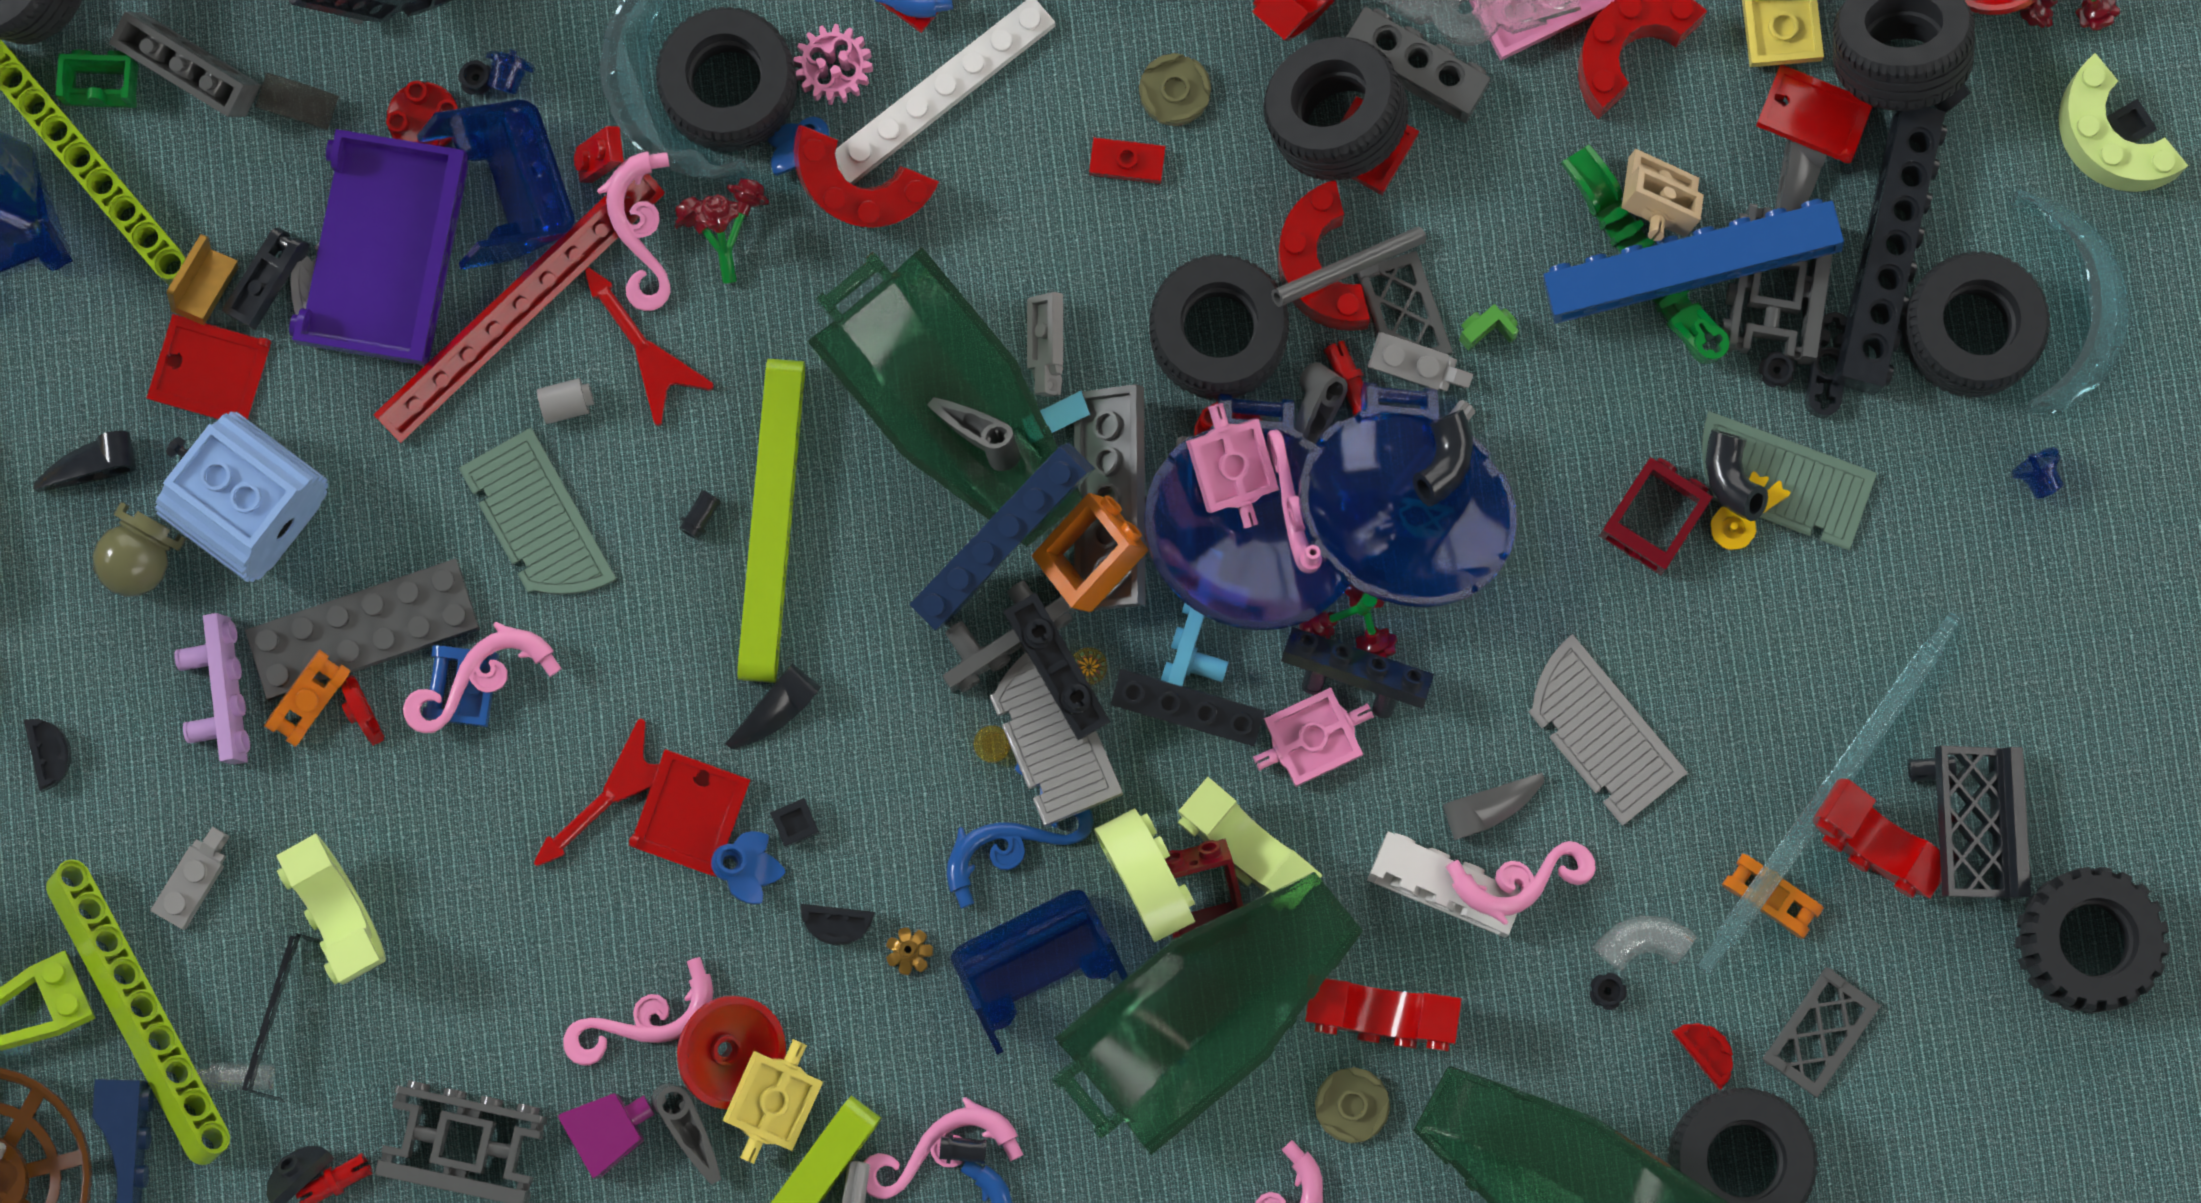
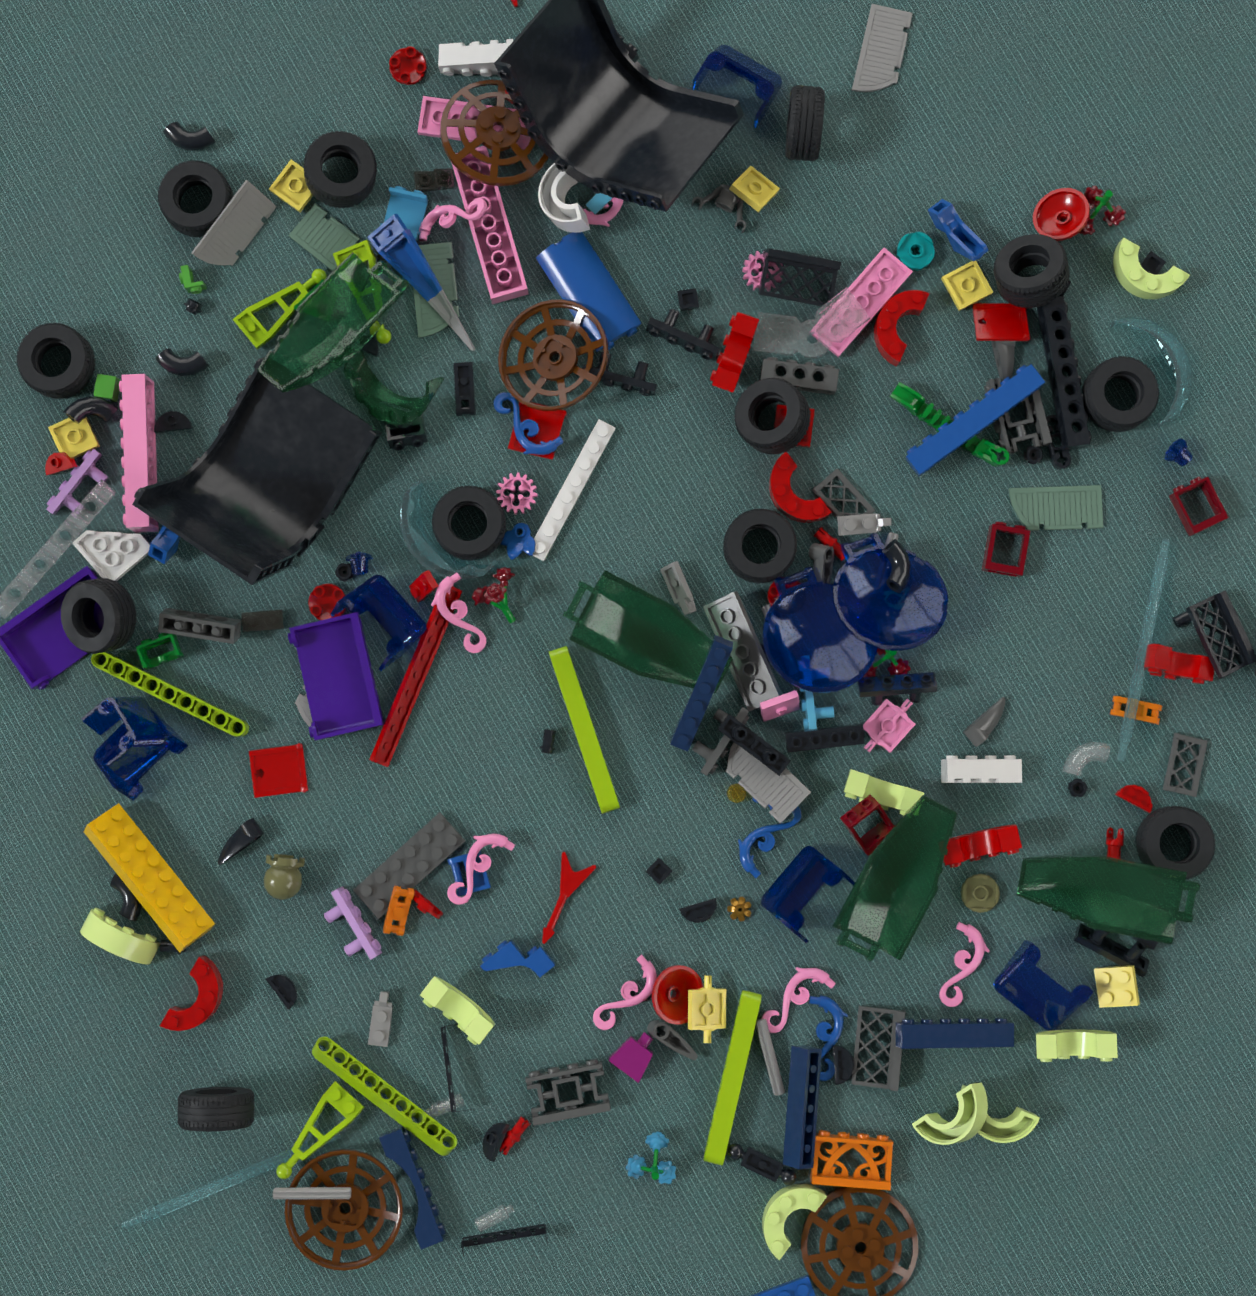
camera: 25 degrees left, 5 degrees up
(200, 282) = (256, 729): pearl gold panel -> none
(239, 495) = (323, 827): light blue piece -> none
(265, 277) = (285, 714): black plate -> none
(468, 859) = (510, 955): none -> blue arch
(536, 518) = (469, 775): sand green piece -> none
(565, 400) = (458, 713): light grey brick -> none
(657, 366) = (495, 677): red piece -> none
(686, 819) = (606, 890): red container -> none
(752, 869) = (648, 901): blue plate -> none
(776, 708) = (627, 815): black piece -> none
(855, 205) = (558, 559): red brick -> none
(962, 1149) = (807, 993): black pin -> none
(981, 431) = (667, 644): dark grey piece -> none
(1051, 559) = (737, 698): orange window -> none
(1065, 412) = (703, 617): medium azure sticker -> none
(1092, 664) = (767, 734): clear yellow tile -> none
(1127, 160) = (679, 481): red plate -> none
(1132, 619) = (779, 705): none -> bright pink plate
(1144, 872) = (840, 827): yellowish green brick -> none
(1174, 89) = (687, 436): olive tile -> none
(1232, 465) = (797, 612): bright pink plate -> none
(1305, 555) = (839, 628): bright pink plant -> none
(1348, 266) = (810, 491): dark grey piece -> none
(1479, 326) = (882, 493): bright green bracket -> none
(1531, 886) = (1014, 751): bright pink plant -> none
(1602, 732) = (1023, 665): light grey piece -> none
(1634, 1118) = (1114, 845): none -> red piece
(1661, 195) = (945, 393): tan plate -> none
(1729, 479) = (1033, 517): black cylinder -> none
(1735, 532) = (1045, 539): yellow piece -> none
(2048, 538) = (1212, 497): none -> dark red window

